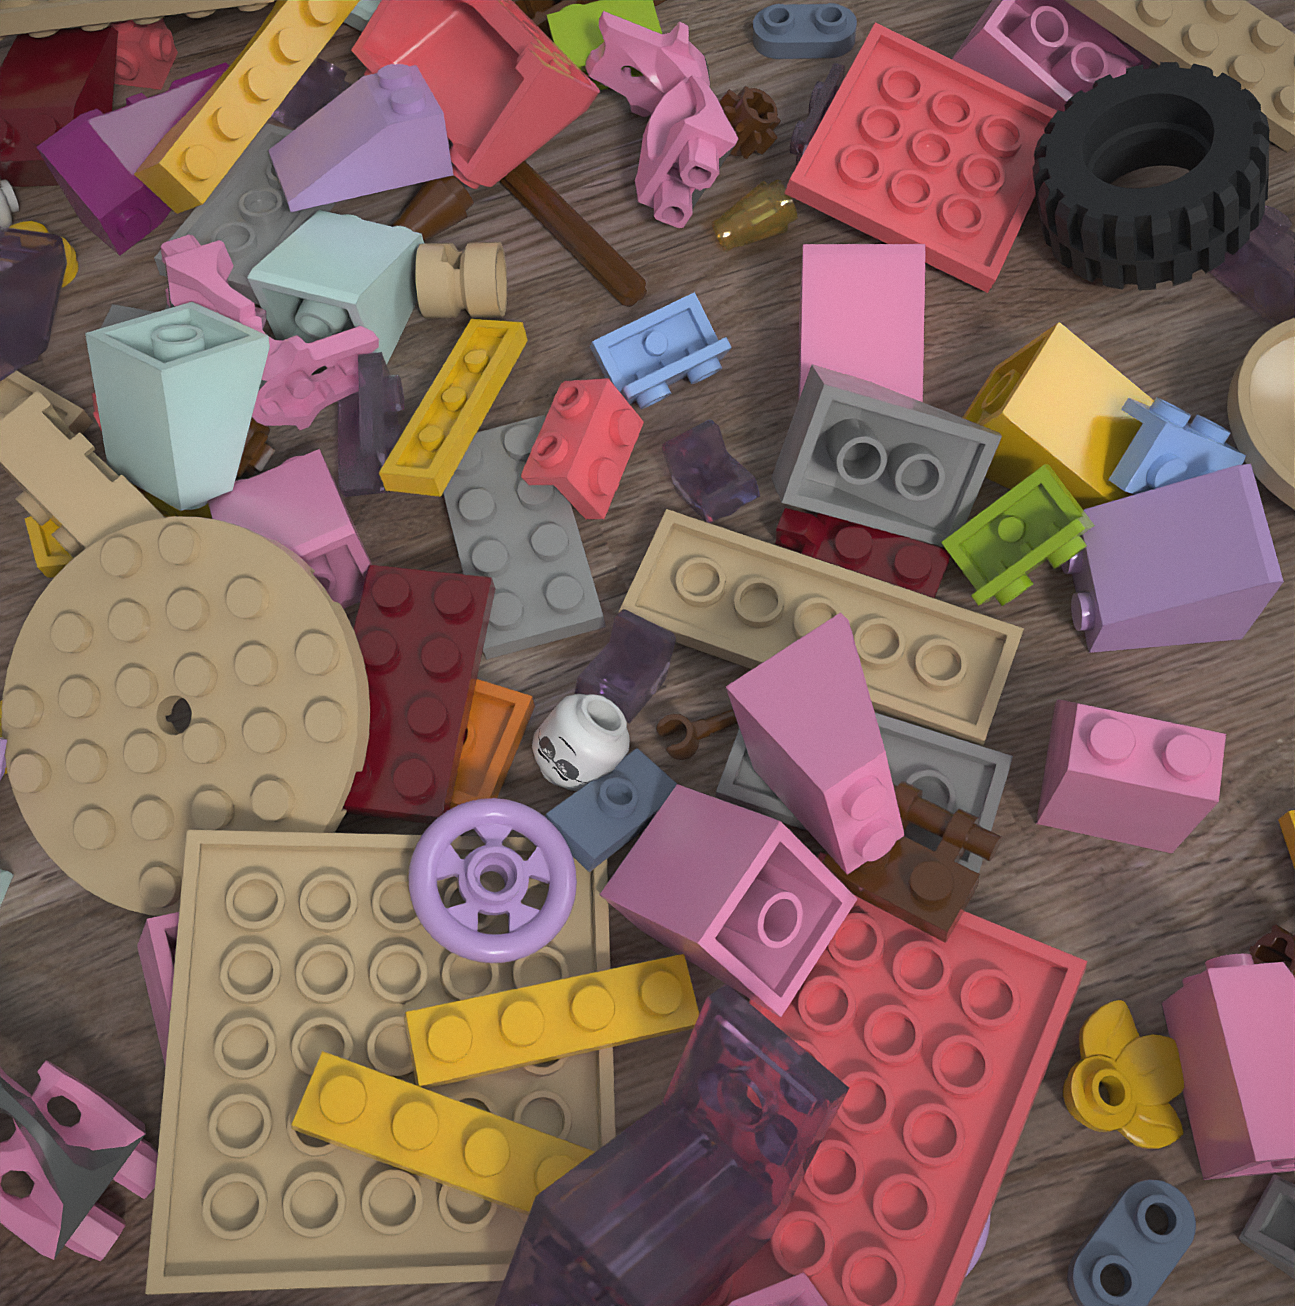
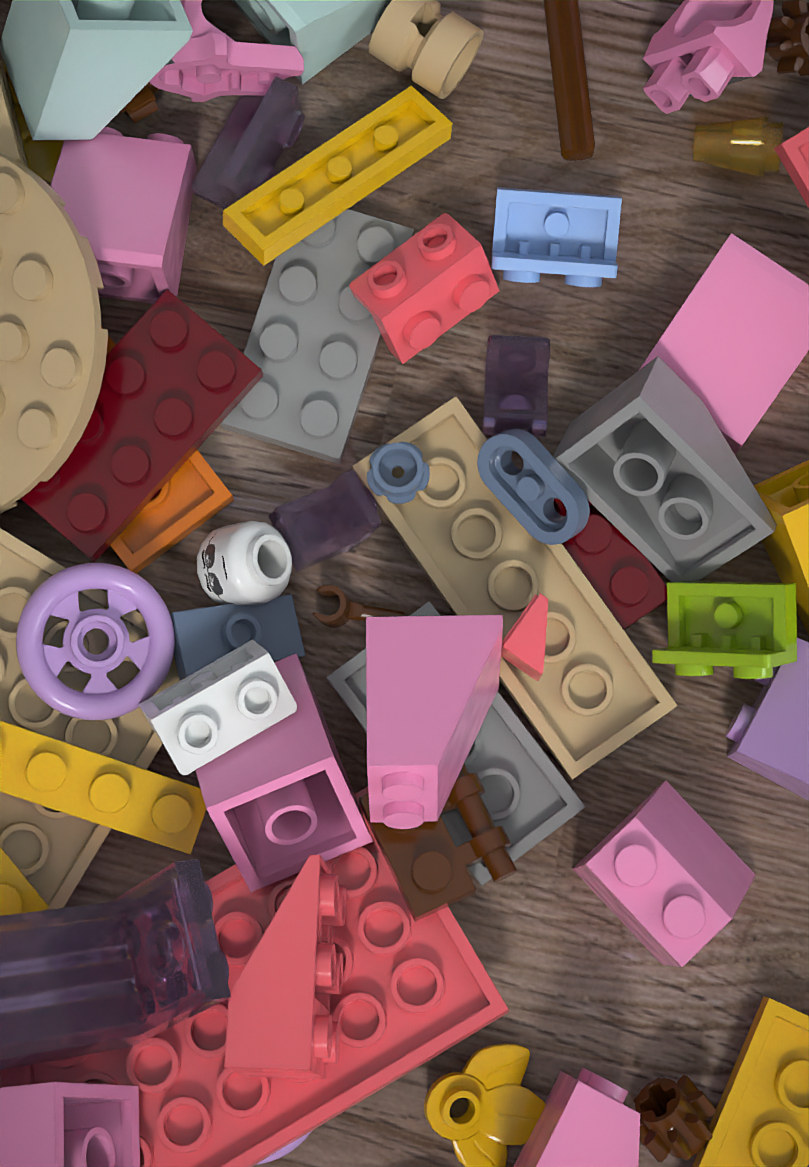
camera: 25 degrees right, 15 degrees up
(645, 858) = (219, 707): none -> white bracket
(658, 572) = (398, 455): none -> sand blue plate
(782, 530) = (532, 490): none -> sand blue plate
(875, 646) = (527, 638): none -> coral slope
(899, 1092) = (283, 994): none -> coral slope

